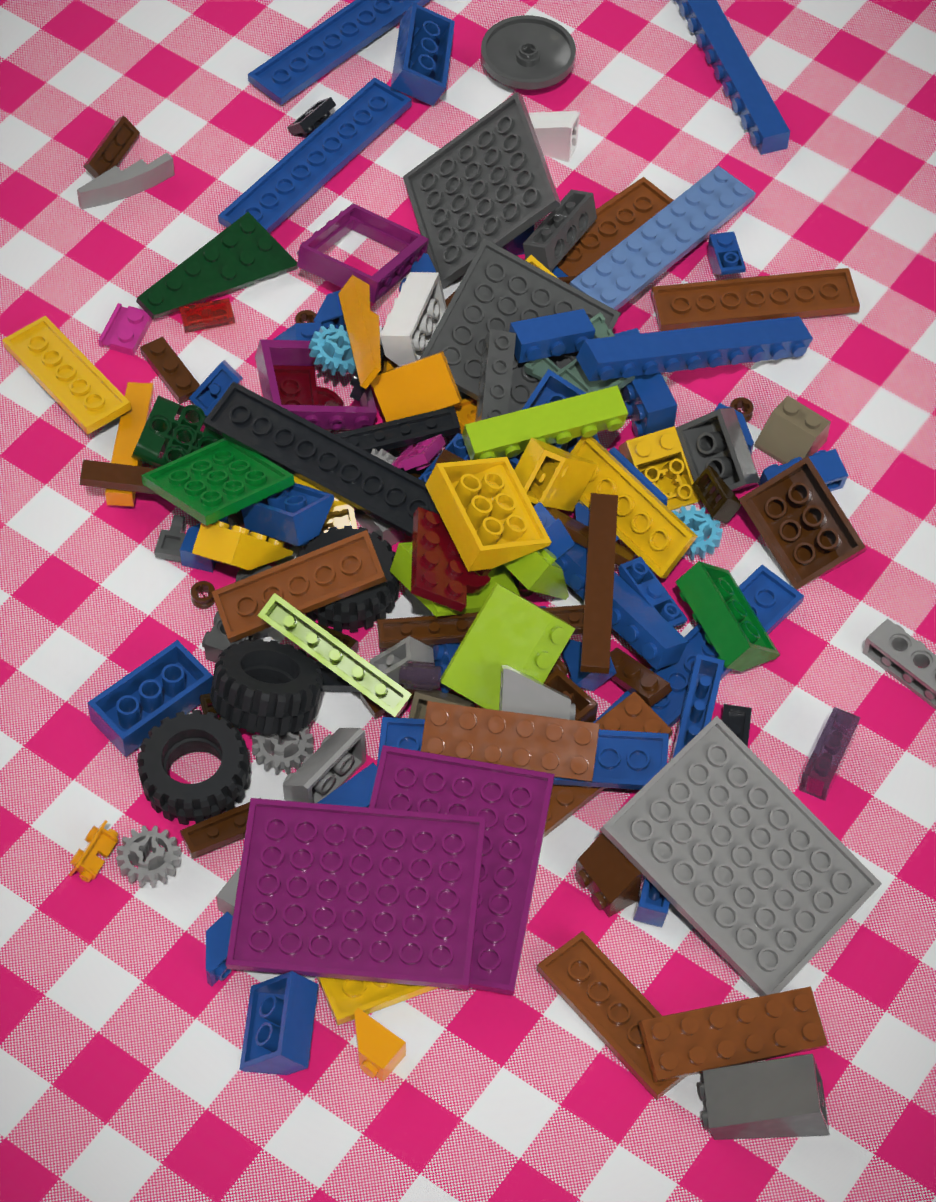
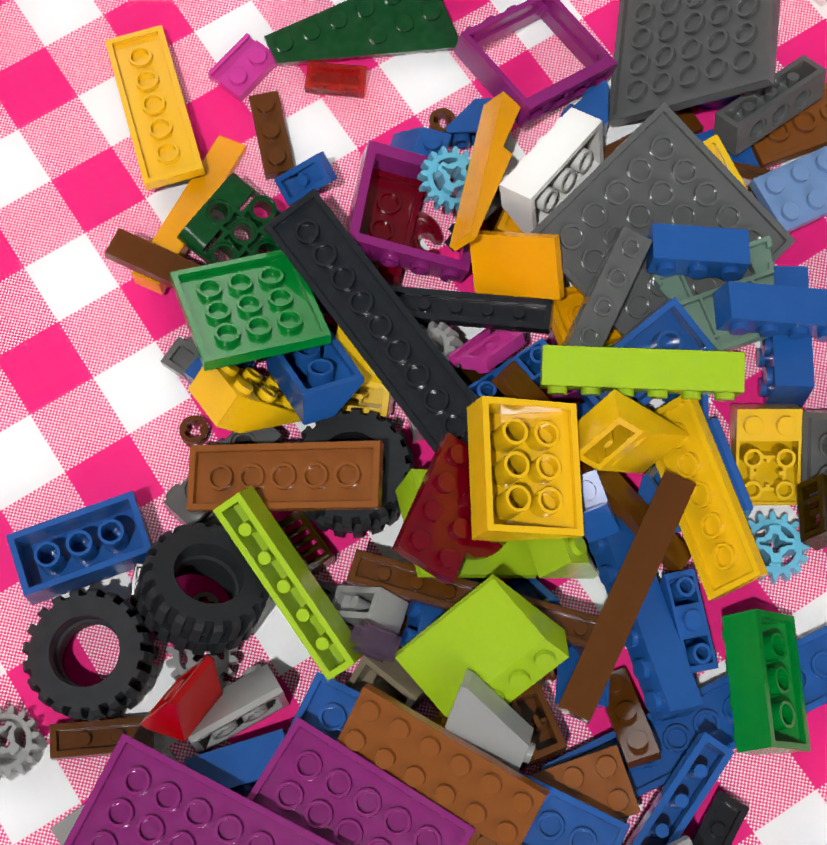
camera: 25 degrees right, 15 degrees up
(290, 764) = (186, 701): none -> red slope

